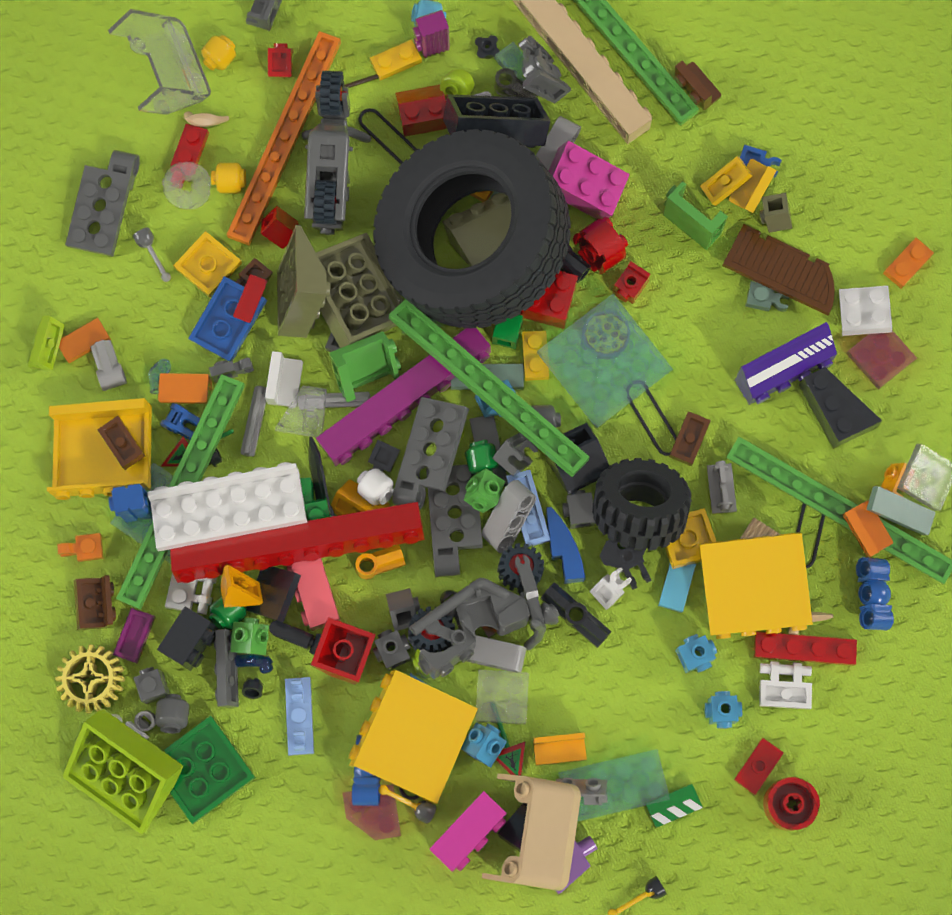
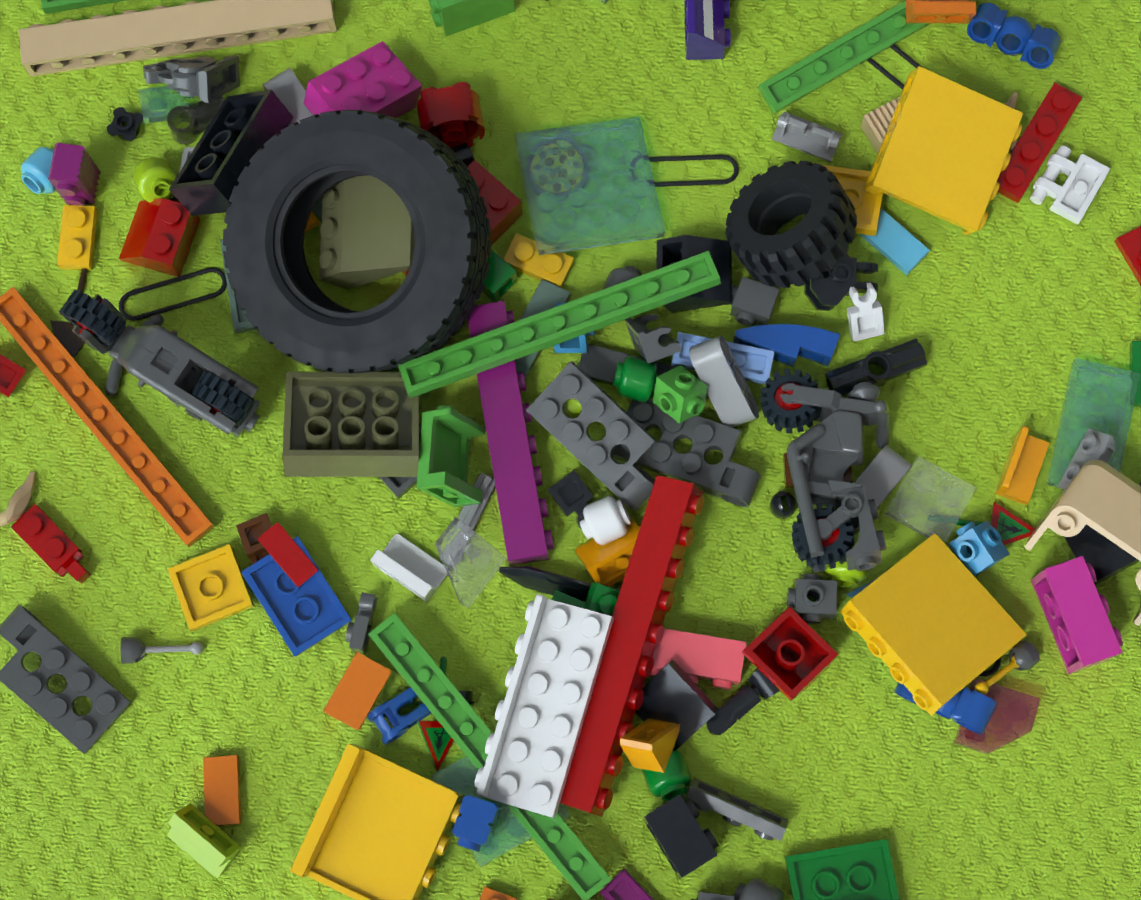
camera: 60 degrees left, 0 degrees up
(109, 370) = (282, 775): light grey piece -> none
(121, 442) = (388, 800): reddish brown plate -> none
(161, 366) = (317, 719): clear light blue arm -> none
(173, 182) = (85, 578): clear plate -> none
(184, 595) = (617, 821): white plate -> none
(229, 178) = (113, 507): yellow head -> none
(249, 637) = (713, 761): bright green brick -> none
(252, 688) = (775, 790): black hinge -> none
(253, 660) = (748, 763): arm -> none
(254, 422) = (442, 627): light grey axle -> none
(278, 227) = (213, 477): red panel -> none
(299, 716) = (836, 750): light blue plate -> none
(300, 287) = (311, 481): olive slope -> none
(382, 560) = (698, 560): light orange piece -> none
(402, 608) = (771, 561): dark grey brick -> none
(630, 292) = (503, 100): red brick -> none
(689, 438) = (731, 140): reddish brown plate -> none
(690, 660) = (988, 259): dark azure brick -> none
(714, 712) = (1066, 262): dark azure brick -> none

